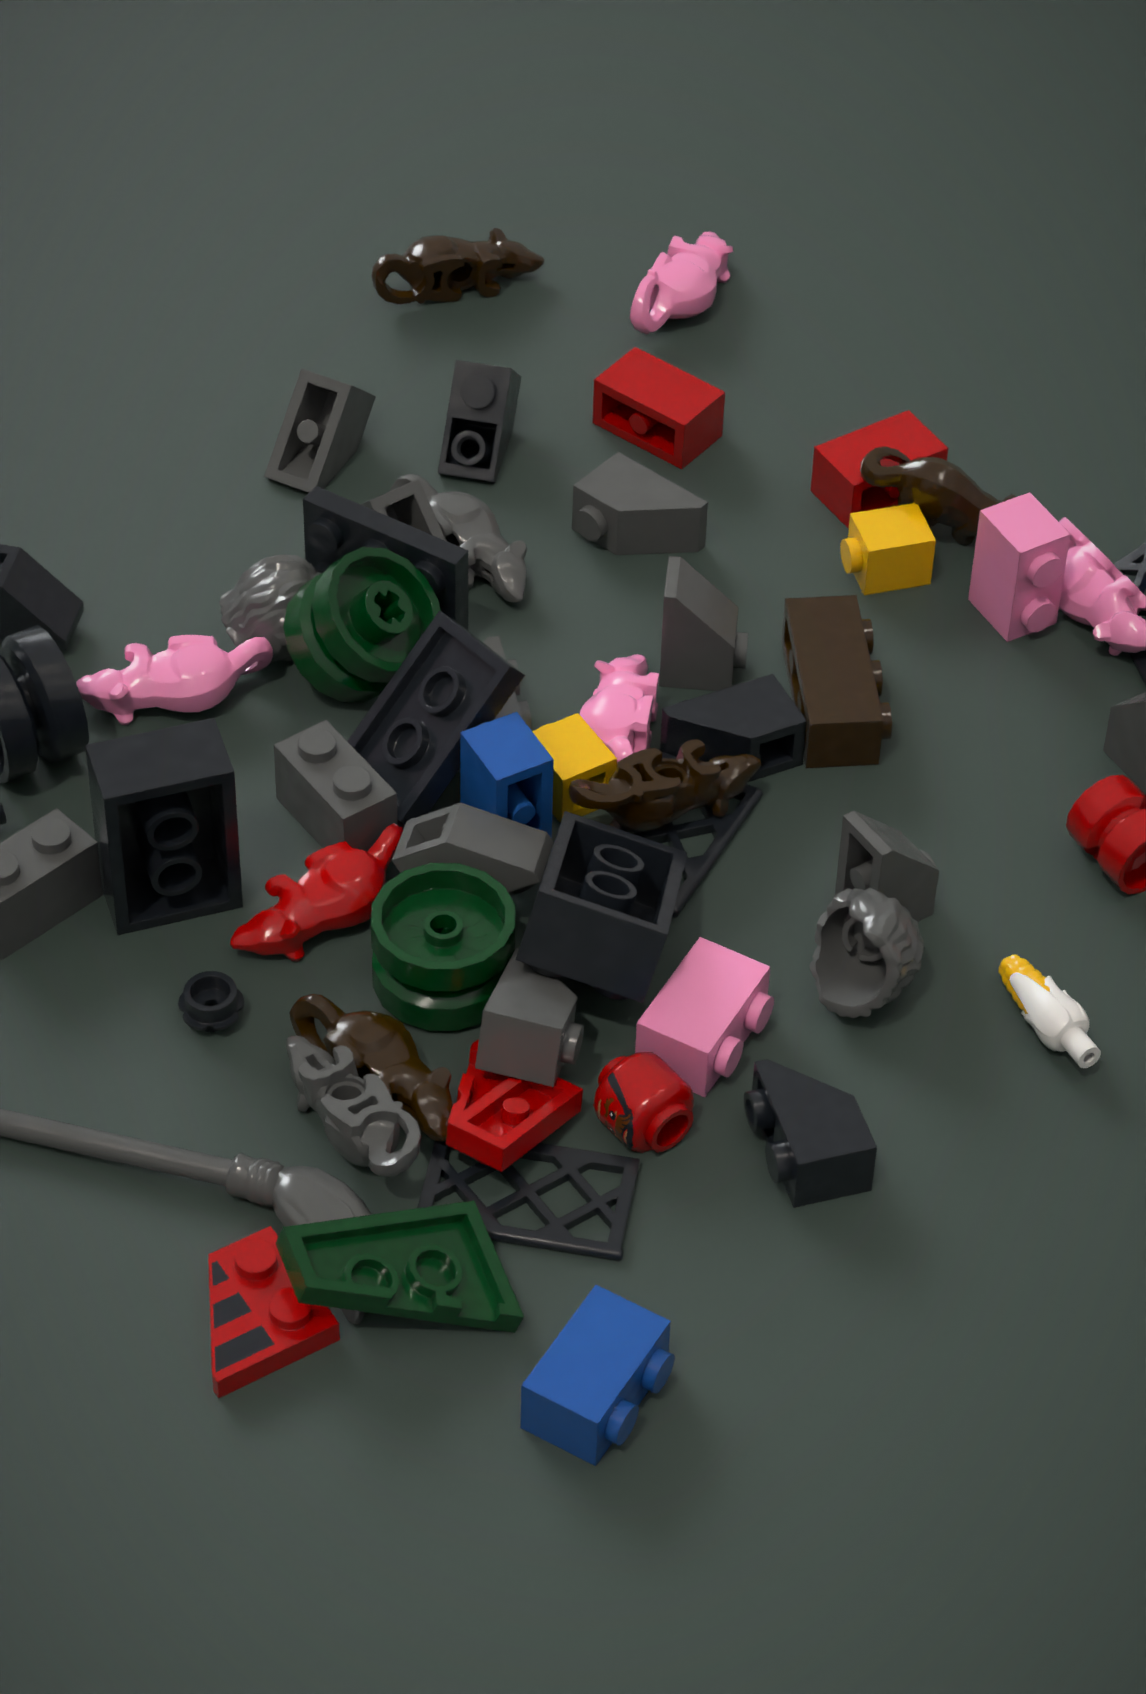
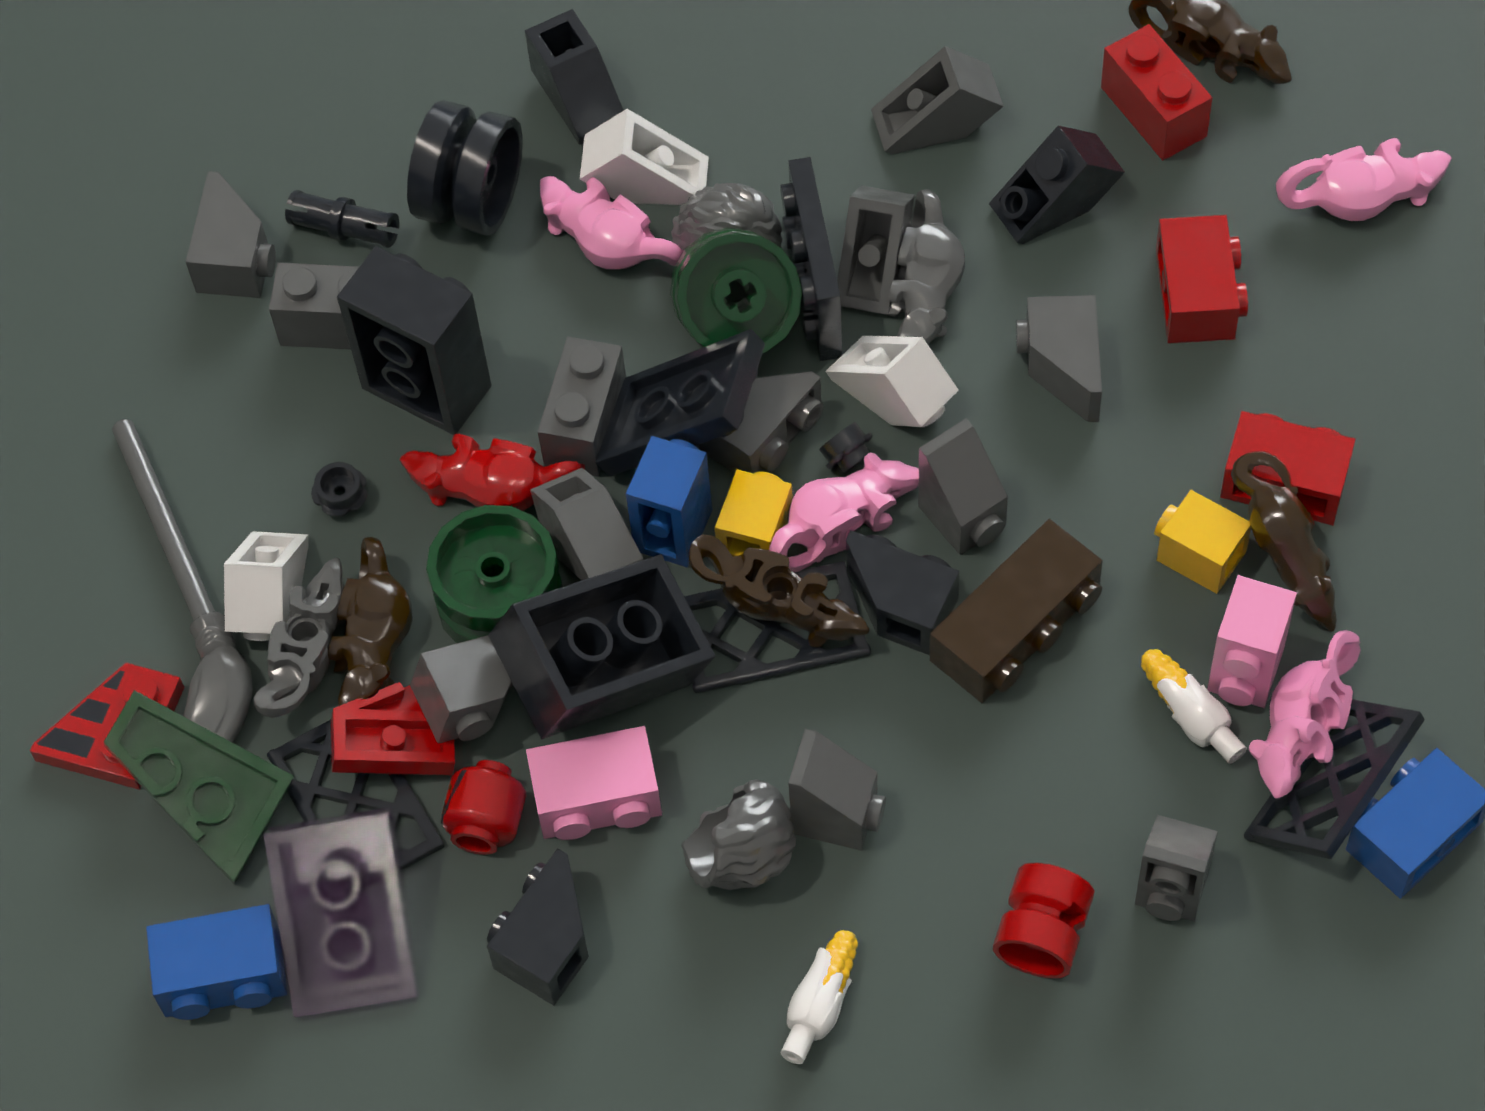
camera: 55 degrees right, 15 degrees up
(140, 611) = (642, 162): none -> white slope
(253, 1103) = (260, 582): none -> white slope
(469, 319) = (1156, 92): none -> red brick
(542, 607) = (895, 379): none -> white slope
(568, 677) = (846, 448): none -> black plate
(644, 1238) = (341, 911): none -> clear purple slope
(1021, 649) = (1193, 707): none -> white piece

